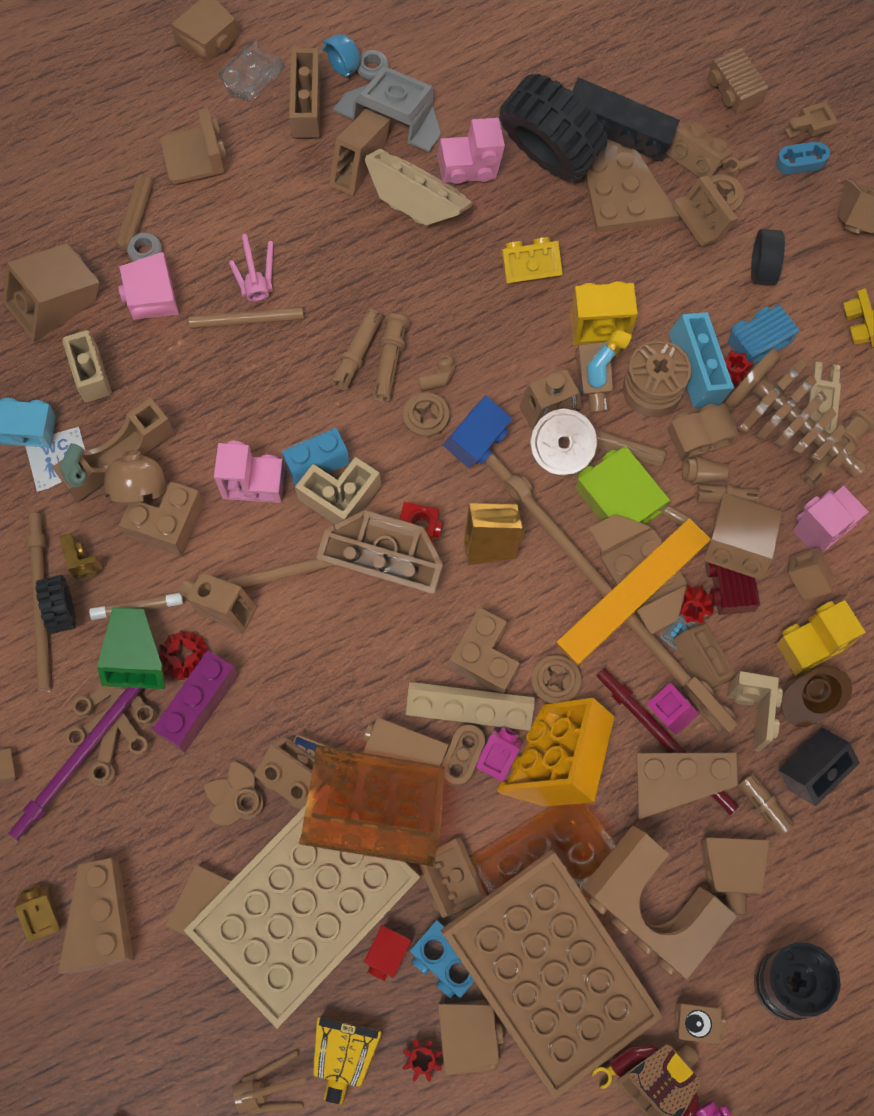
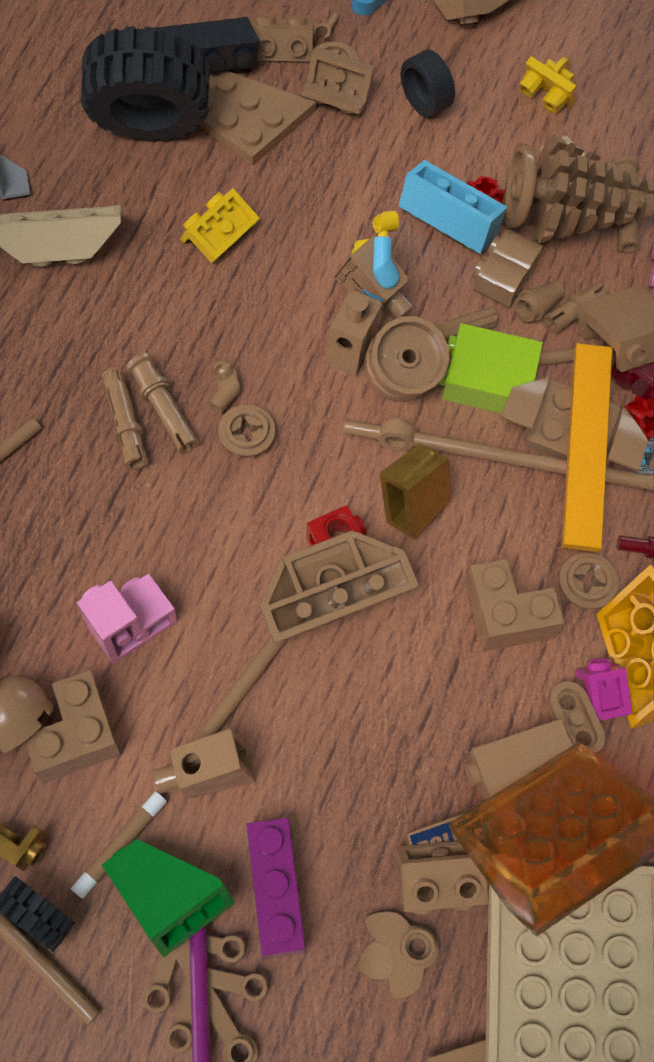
camera: 45 degrees left, 5 degrees down
(172, 665) = (216, 832): red gear -> none
(323, 451) = (178, 548): dark azure brick -> none
(341, 497) = (236, 572): tan brick -> none
(470, 706) = (538, 668): tan plate -> none
(472, 156) = (83, 165): bright pink brick -> none
(477, 432) = (314, 409): blue brick -> none
(601, 311) = (332, 222): yellow brick -> none
(654, 392) = (431, 246): medium nougat wheel -> none
(765, 332) = (481, 149): dark azure brick -> none

